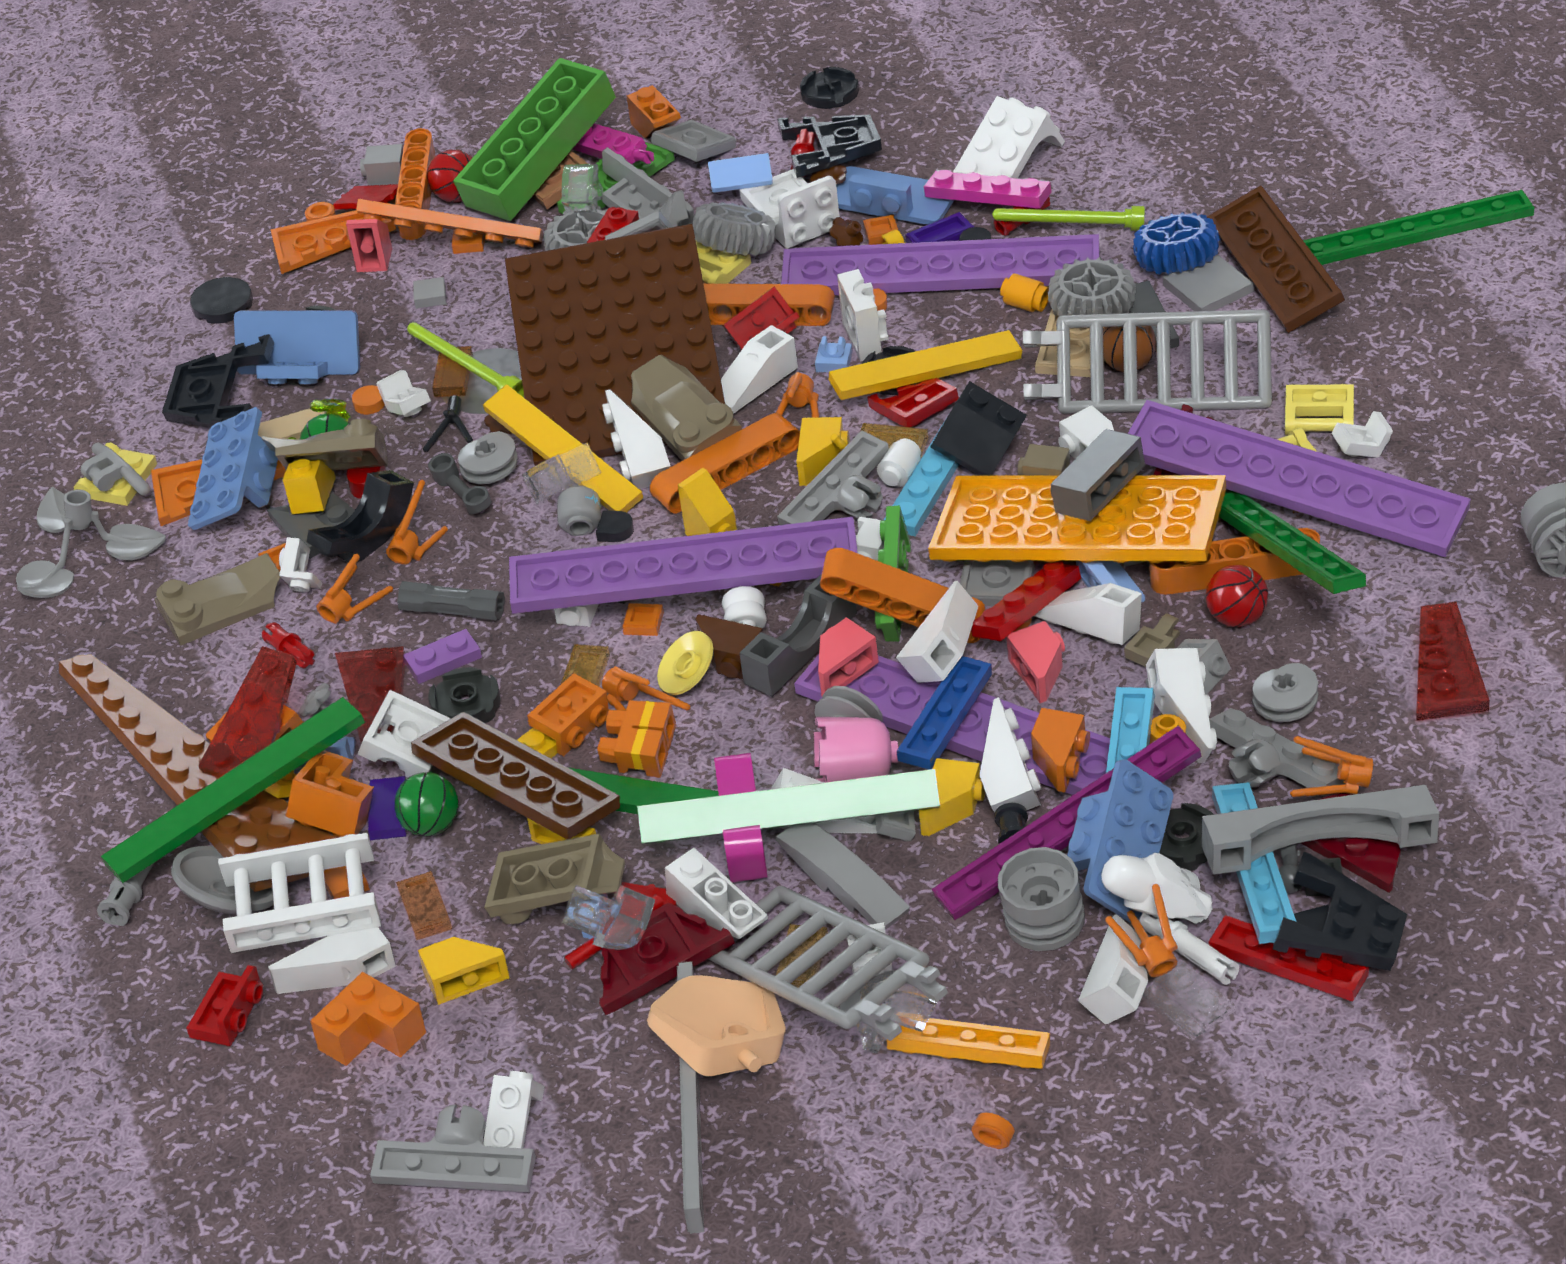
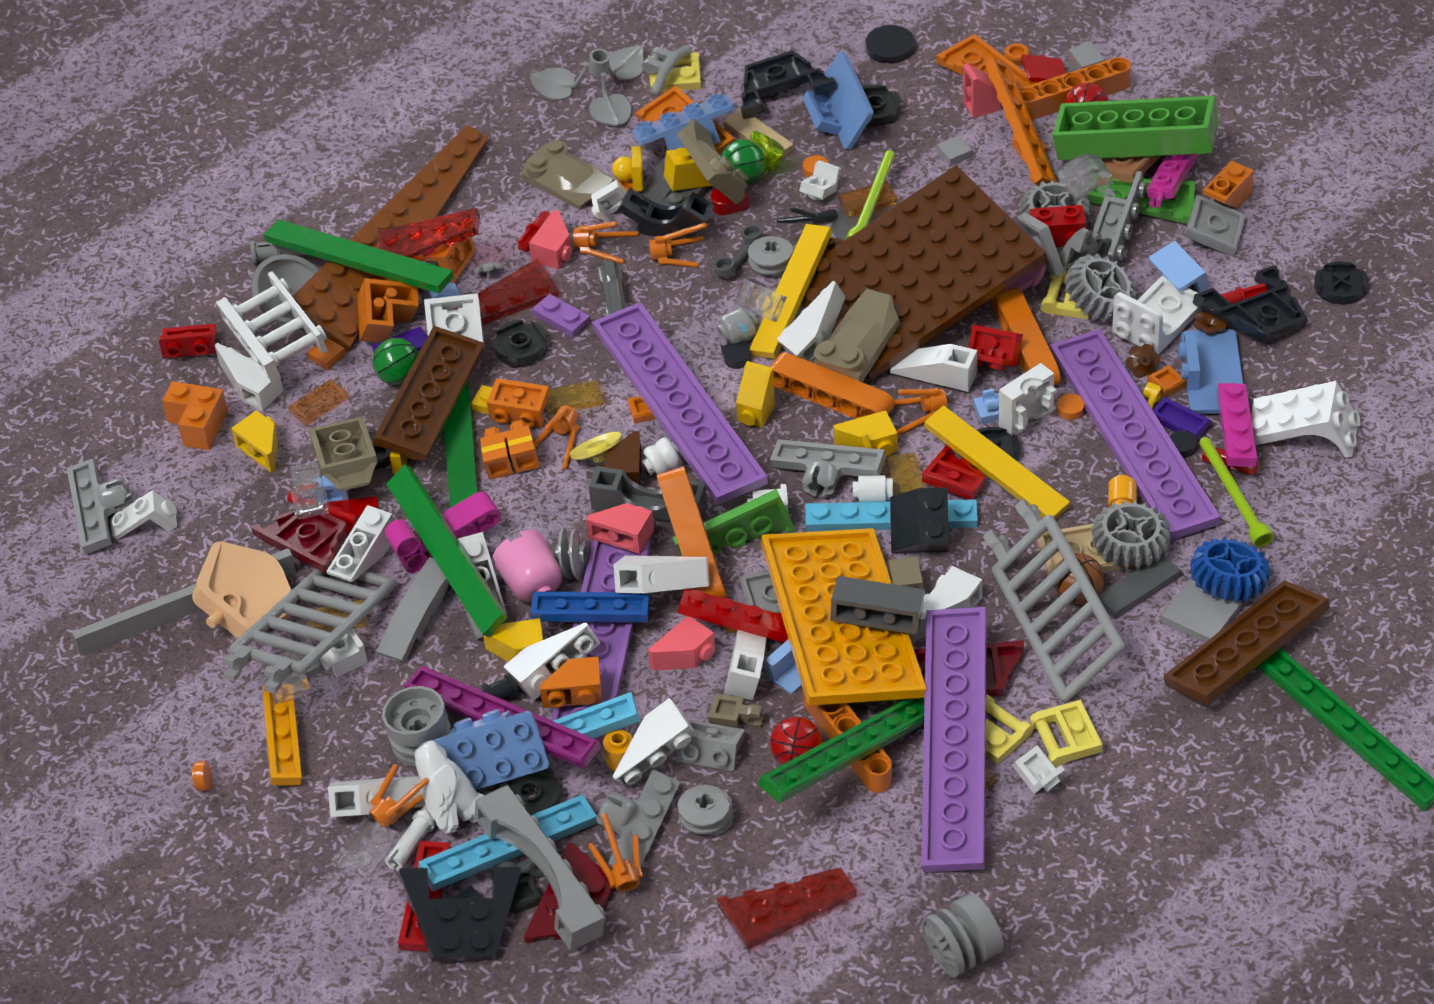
camera: 65 degrees right, 5 degrees up
(262, 531) = (627, 169): none -> yellow tile
(322, 630) = (551, 242): none -> coral slope

